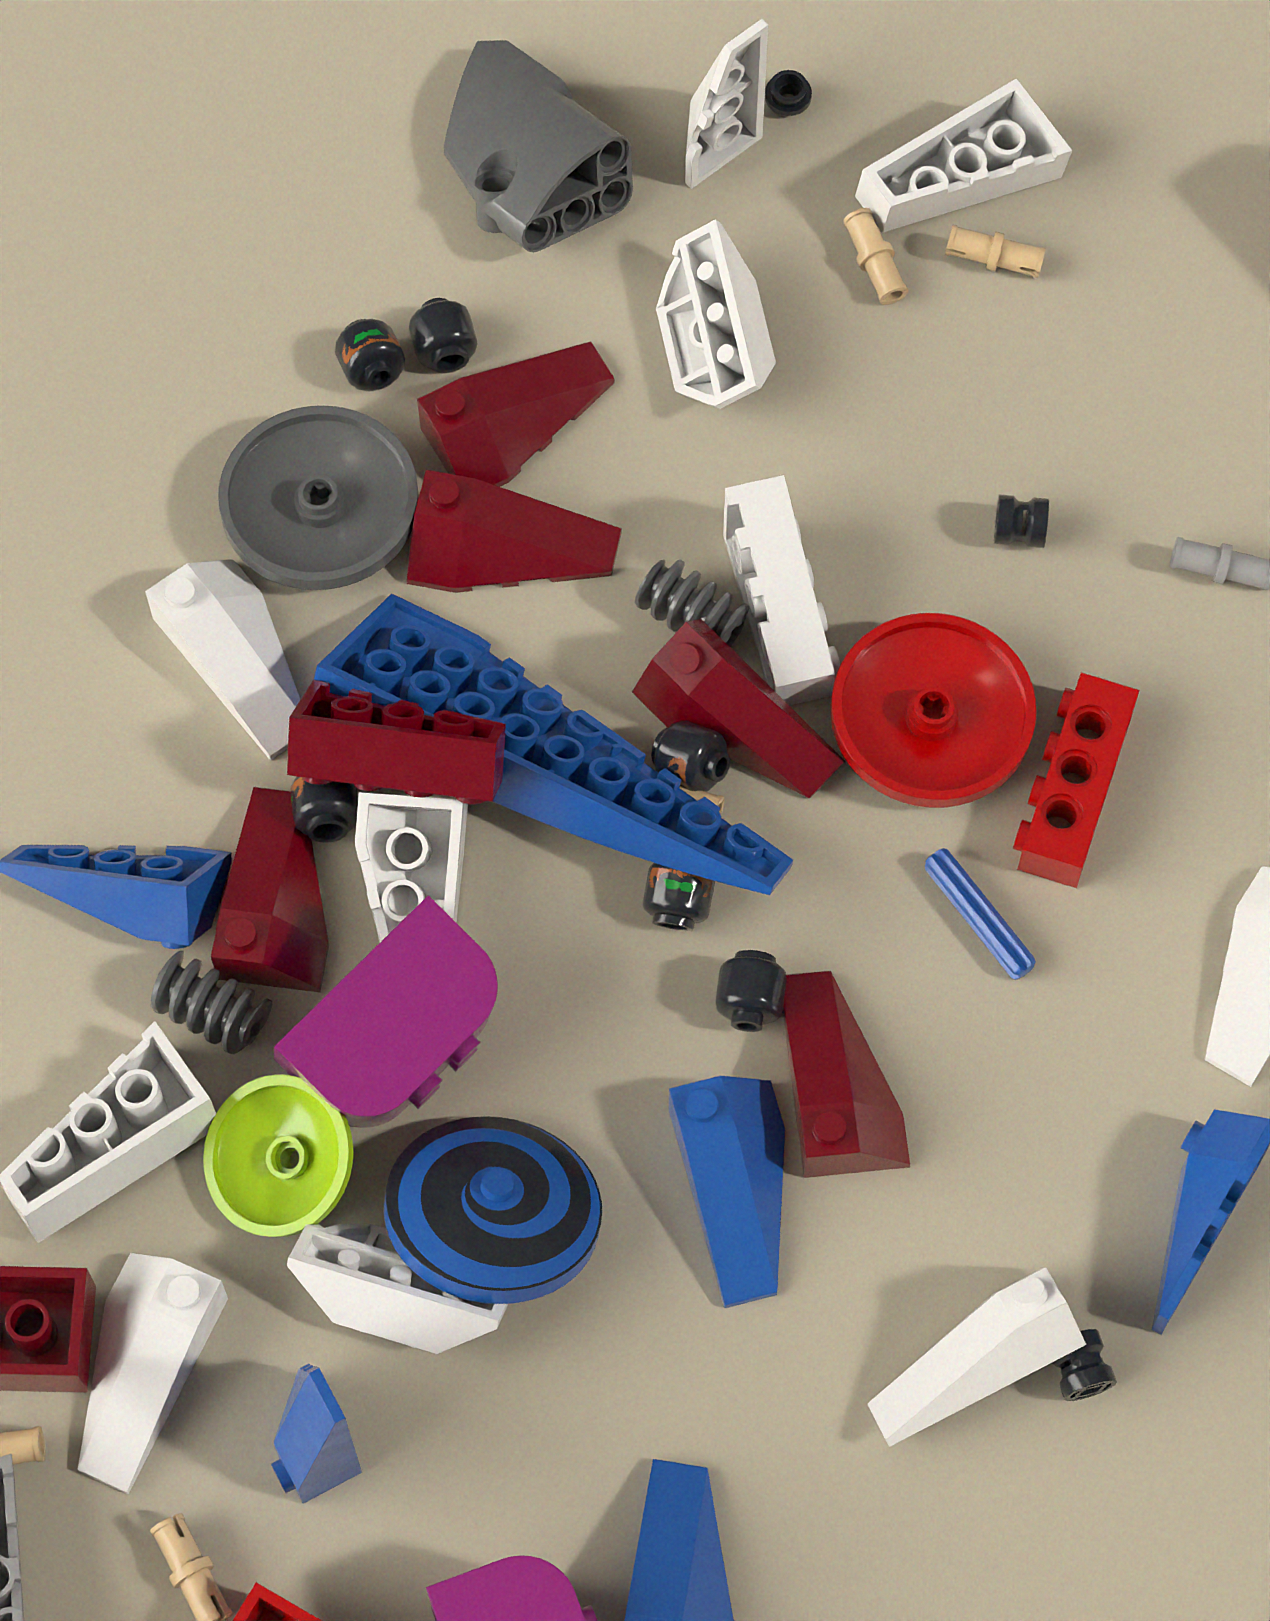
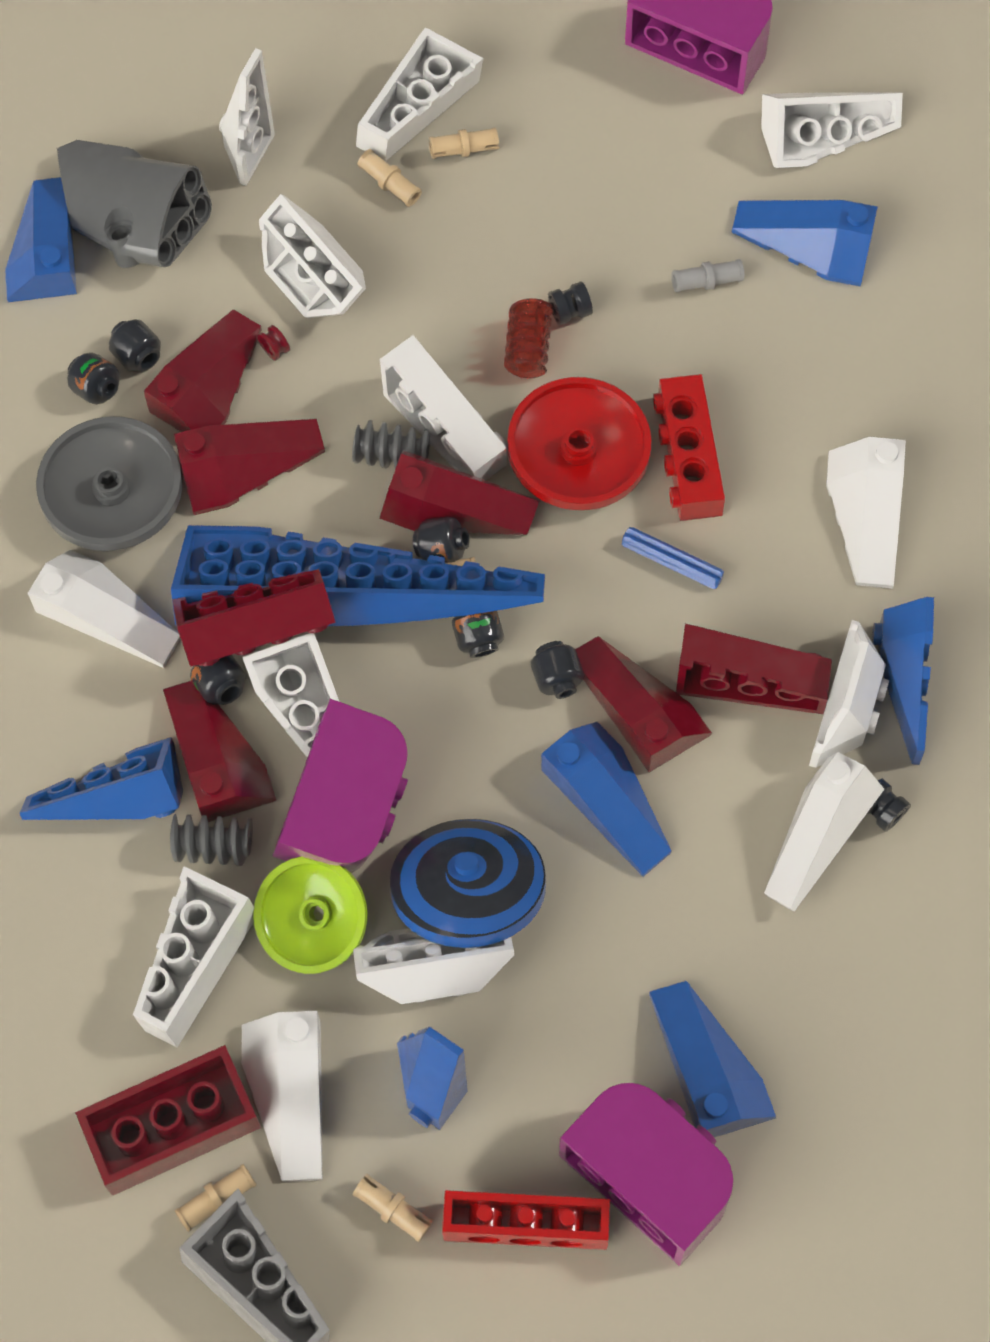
camera: 25 degrees left, 0 degrees up
(398, 161) = (43, 247): none -> blue wedge
(616, 407) = (273, 342): none -> dark red bush
(788, 83) = (282, 92): black plate -> none
(941, 542) = (528, 338): none -> clear red piece
(997, 1109) = (751, 672): none -> dark red wedge
(1111, 1207) = (852, 698): none -> white wedge

